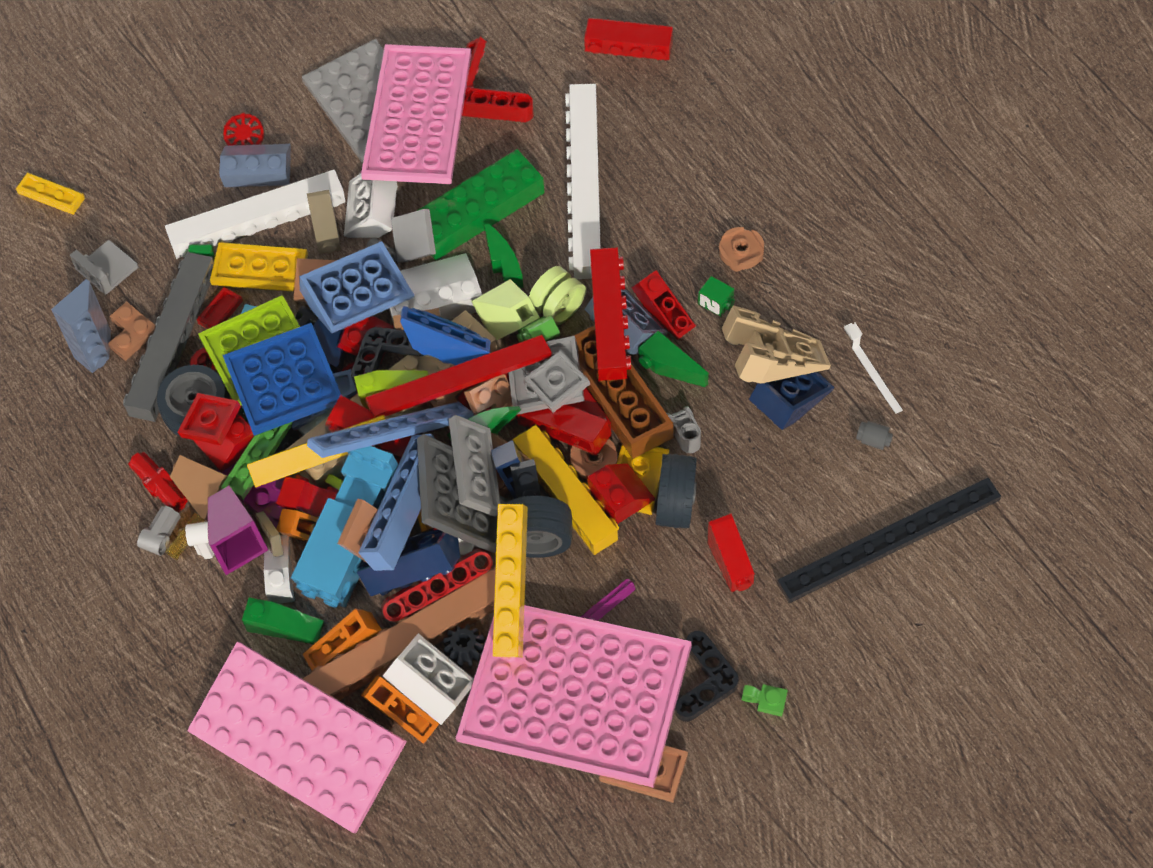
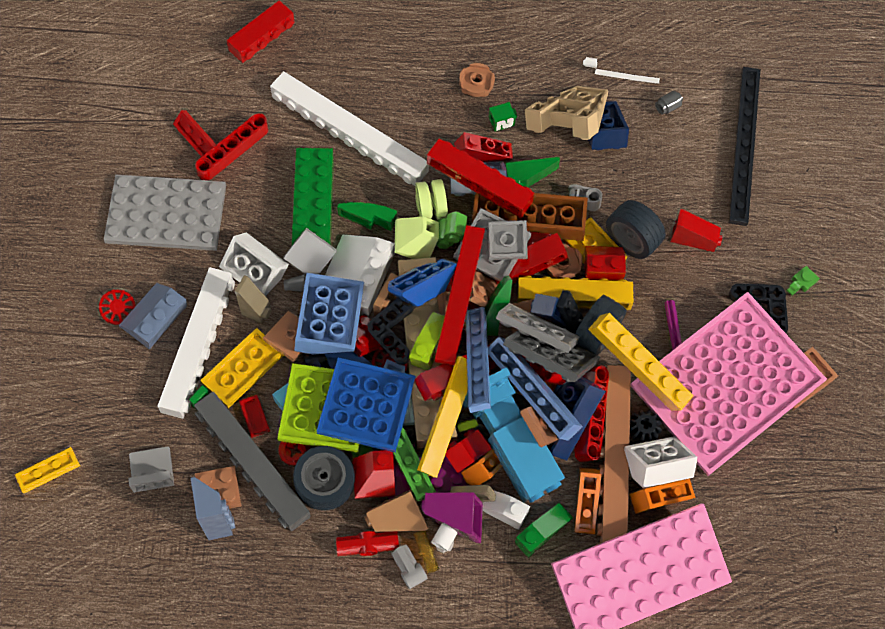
camera: 60 degrees left, 5 degrees up
(209, 419) = (361, 472): red plate -> none
(417, 114) = (216, 186): bright pink plate -> none

